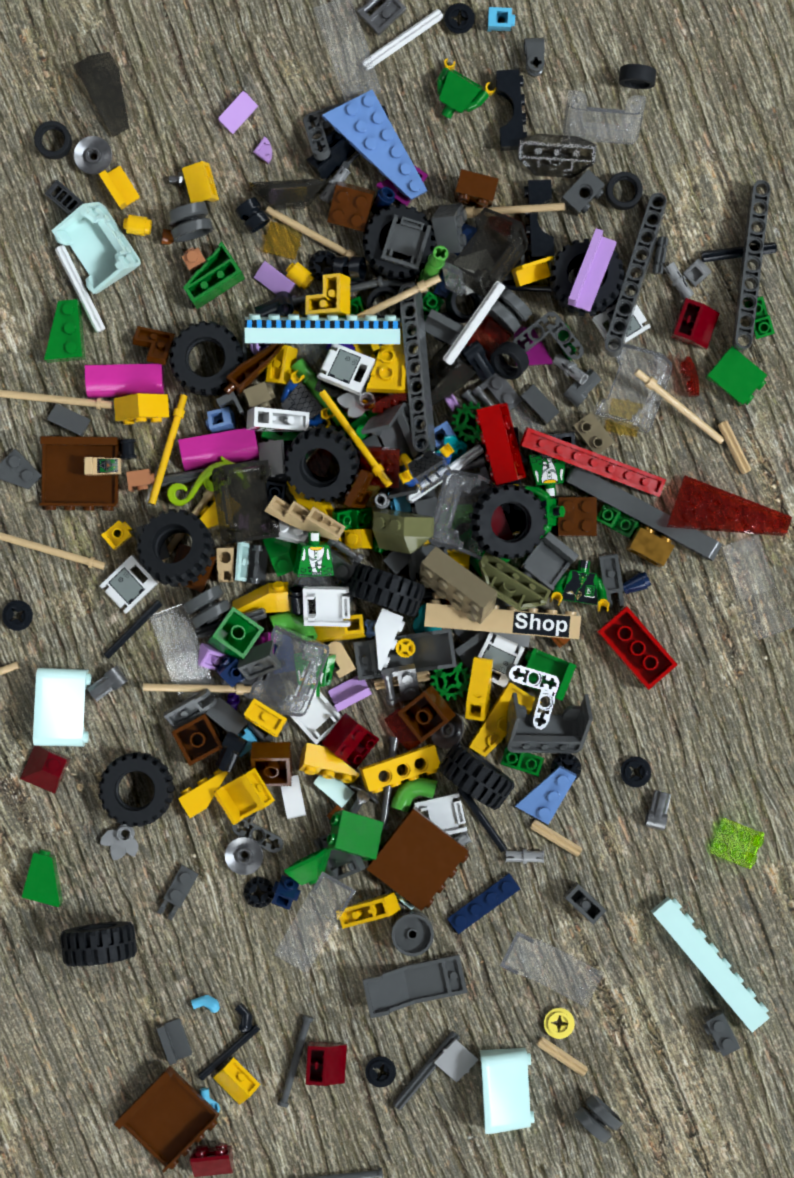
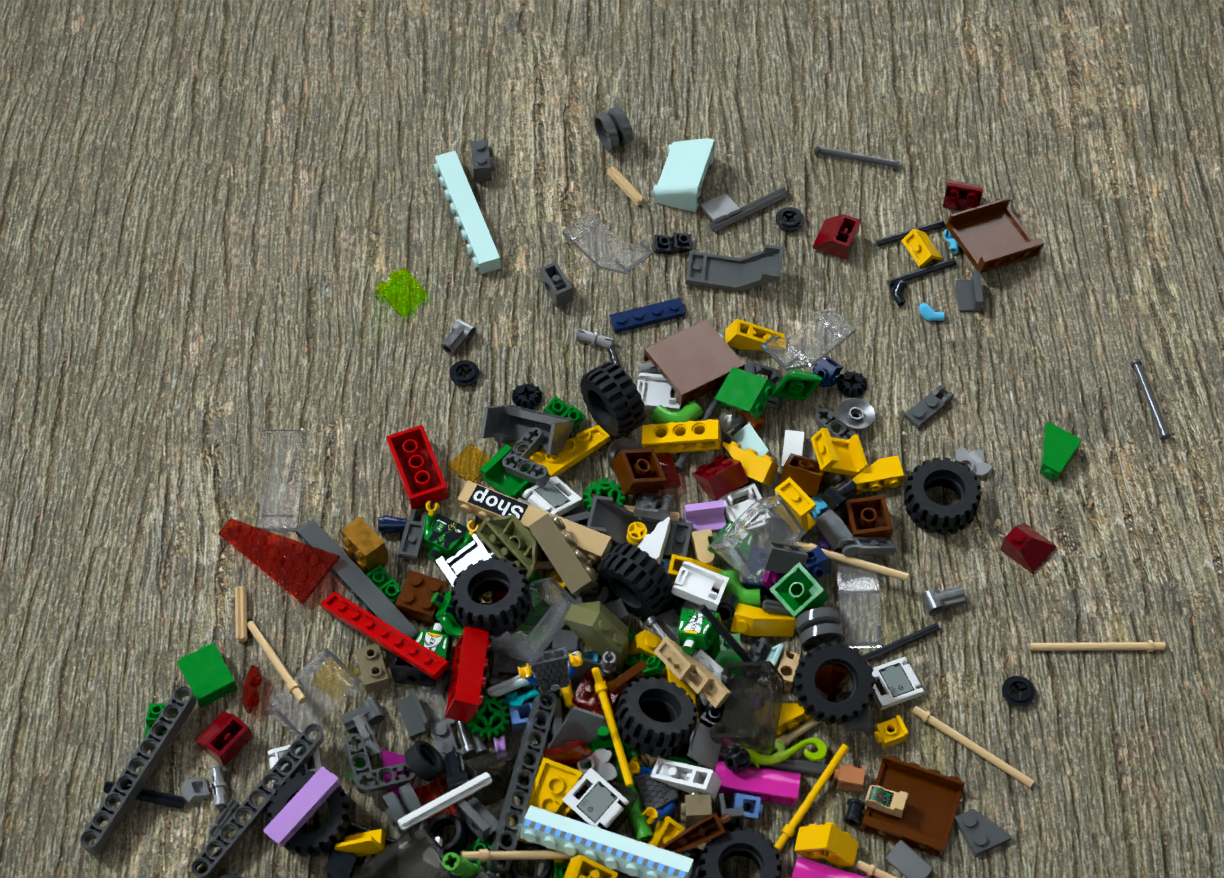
camera: 160 degrees left, 30 degrees down
(60, 707) = (995, 591): light aqua windscreen -> none
(98, 943) = (1017, 373): black tyre -> none
(210, 657) = (832, 583): lavender slope -> none
(239, 453) = (737, 759): none -> black gear
(254, 1097) = (899, 236): none -> black bar
(283, 1102) = (841, 275): dark grey bar -> none
(285, 559) = (724, 633): none -> black bar
(416, 922) = (721, 305): dark grey wheel -> none
(453, 279) = (446, 846): clear plate -> none
(479, 689) = (580, 475): yellow slope -> none
(488, 999) = (672, 245): none -> black slope
(547, 796) = (552, 376): medium blue wing -> none
(556, 838) = (560, 344): tan axle -> none
(564, 1030) = (615, 203): light yellow gear -> none
(590, 676) = (468, 463): none -> clear yellow piece

